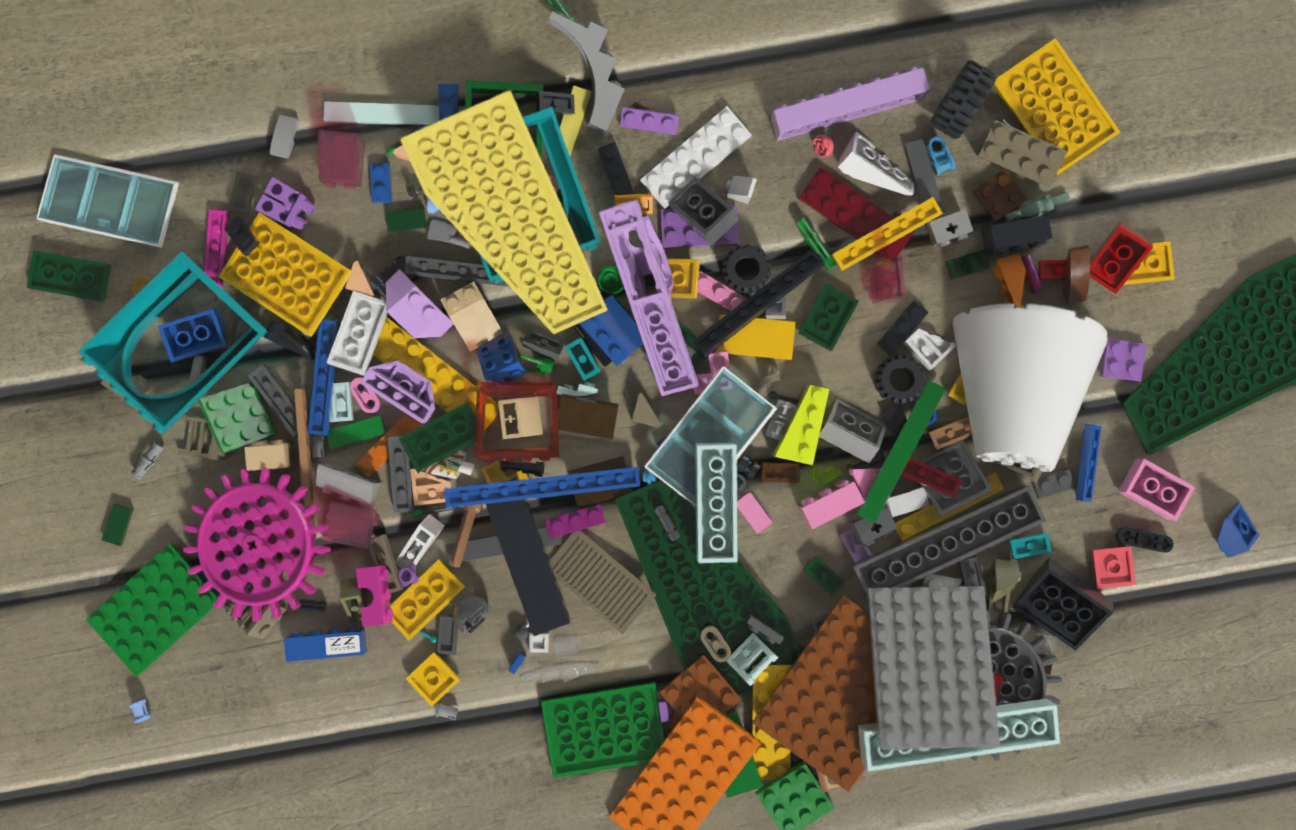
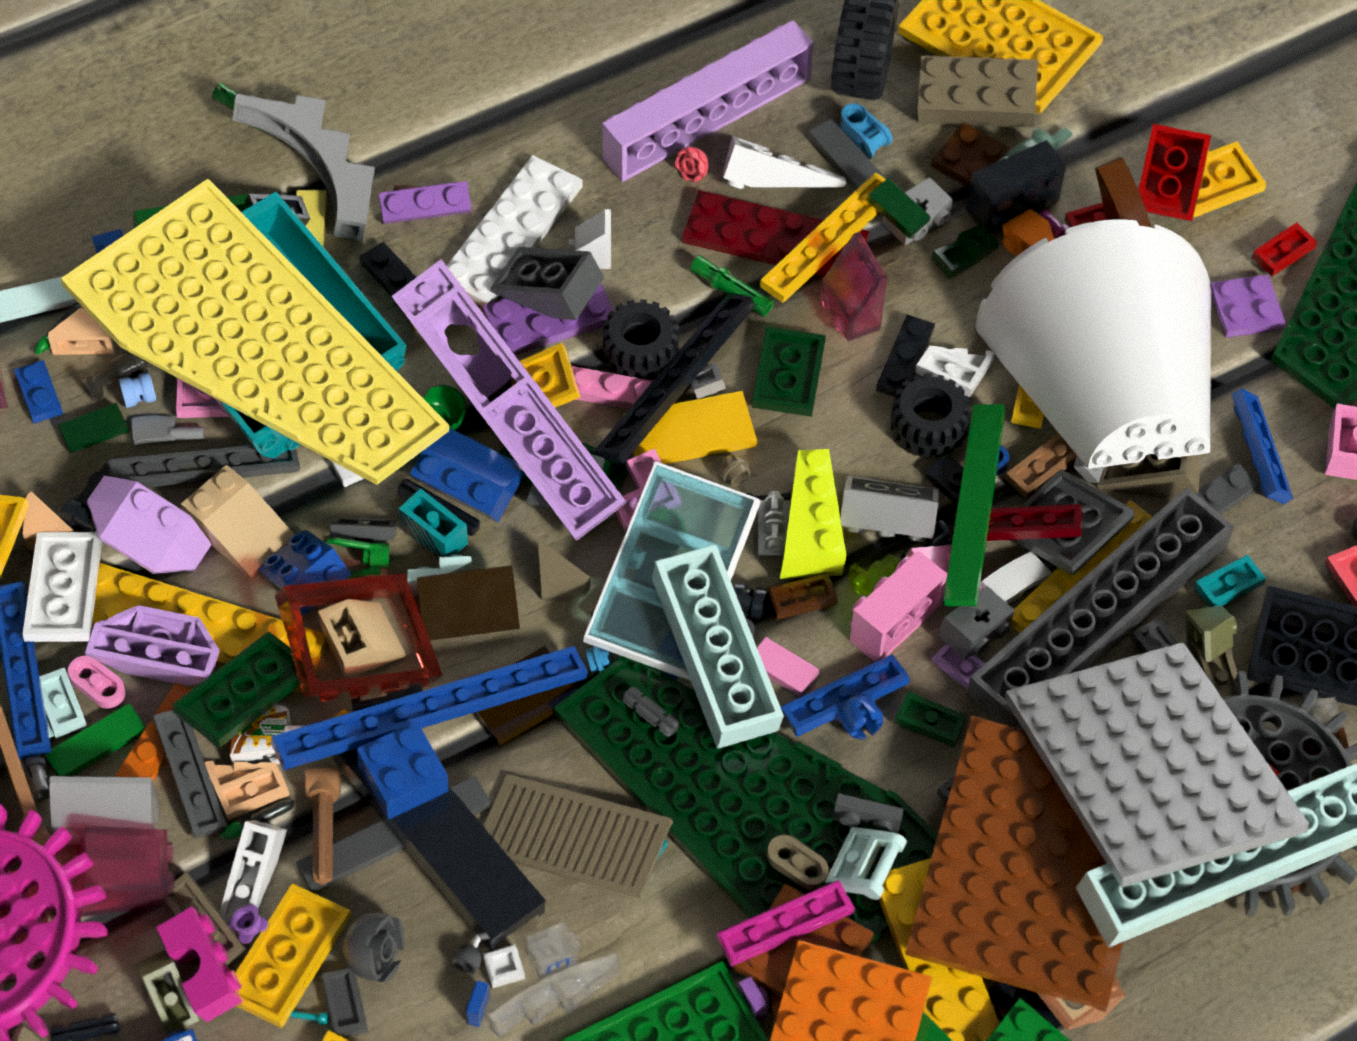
camera: 20 degrees left, 30 degrees down
(513, 526) = (402, 770): none -> blue brick
(574, 521) = (500, 761): magenta plate -> none
(694, 682) = (785, 923): none -> dark pink tile
(781, 548) = (848, 700): none -> blue plate
(936, 230) = (898, 208): none -> dark green tile
(1164, 329) = (1284, 249): none -> red plate

